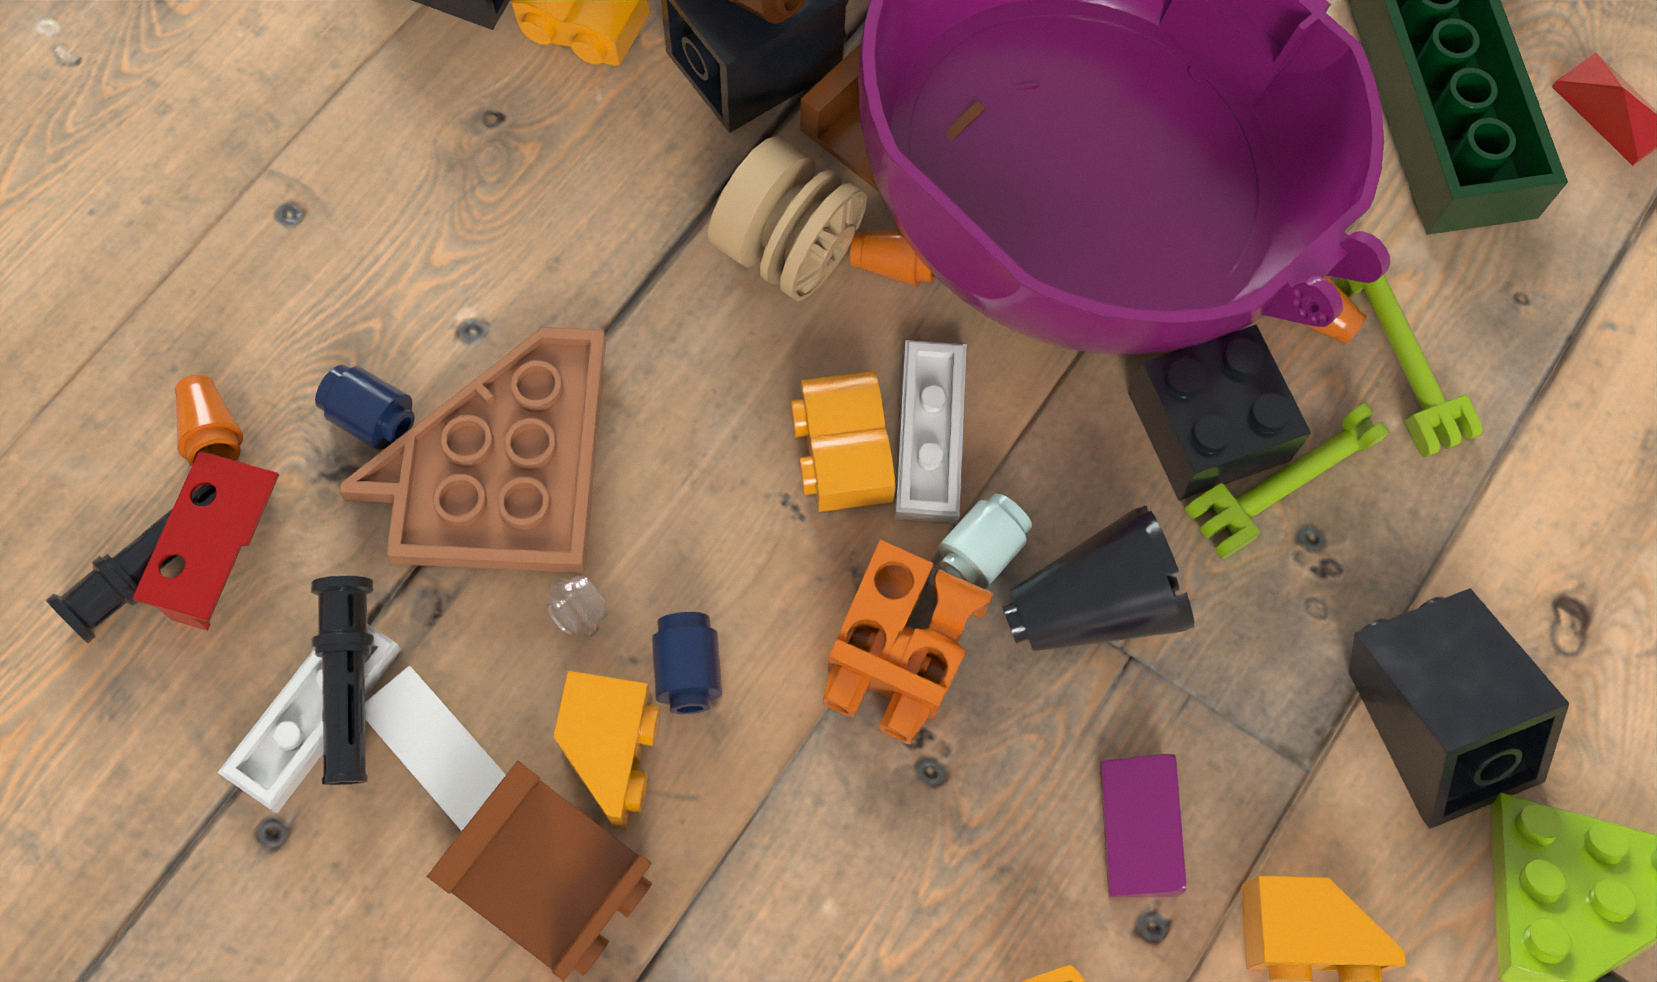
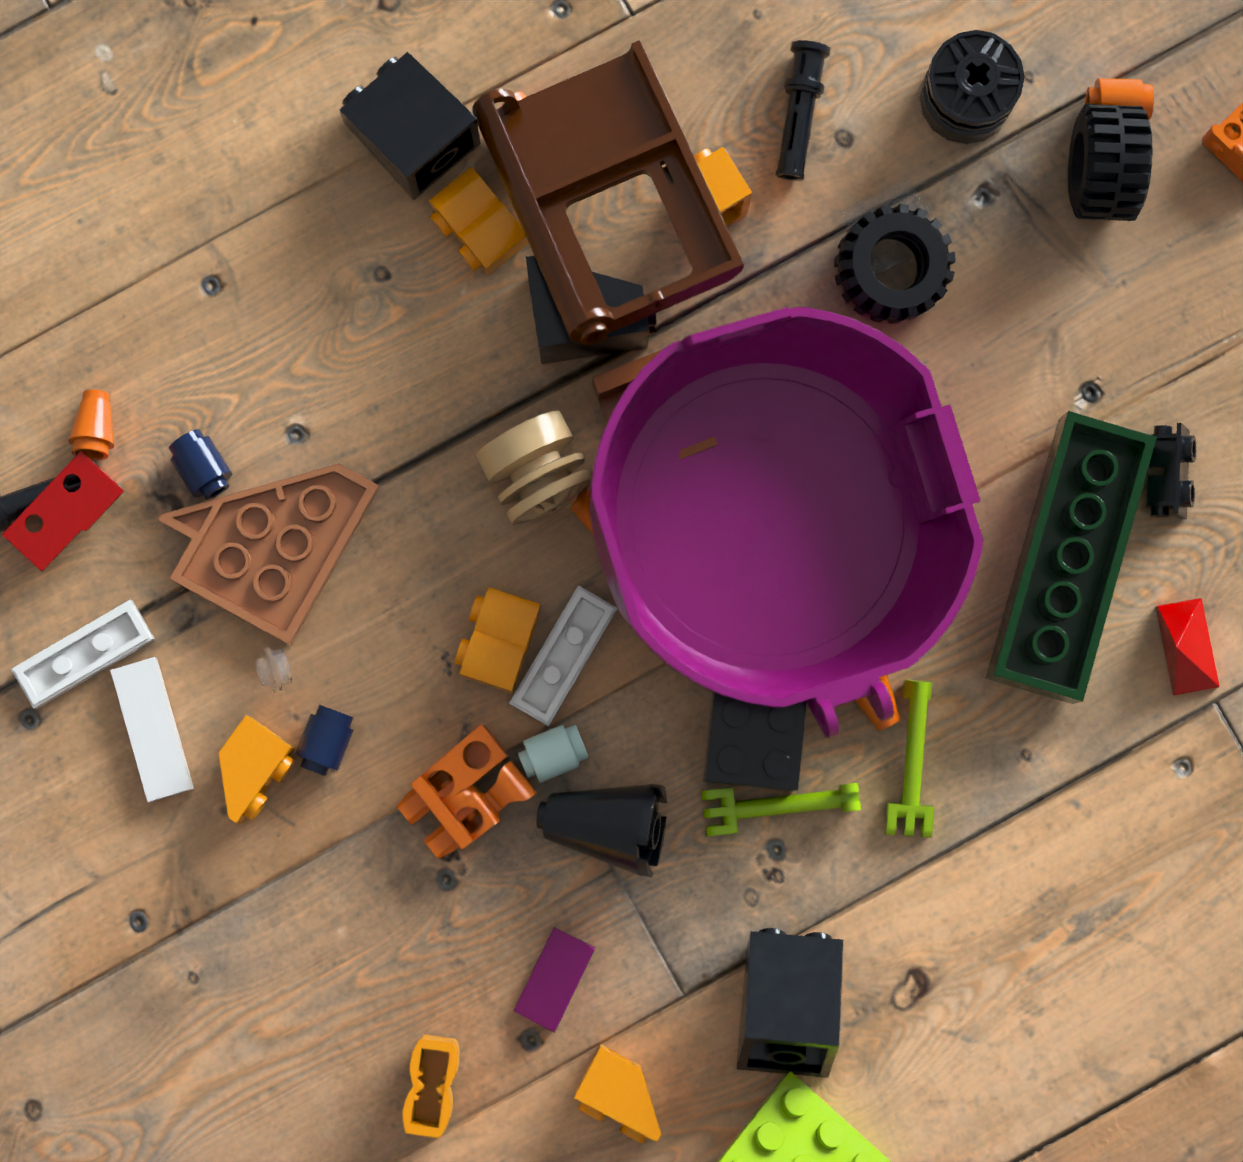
camera: 25 degrees right, 15 degrees up
(342, 645) = (116, 629): black pin -> none
(542, 872) = (178, 829): dark orange panel -> none

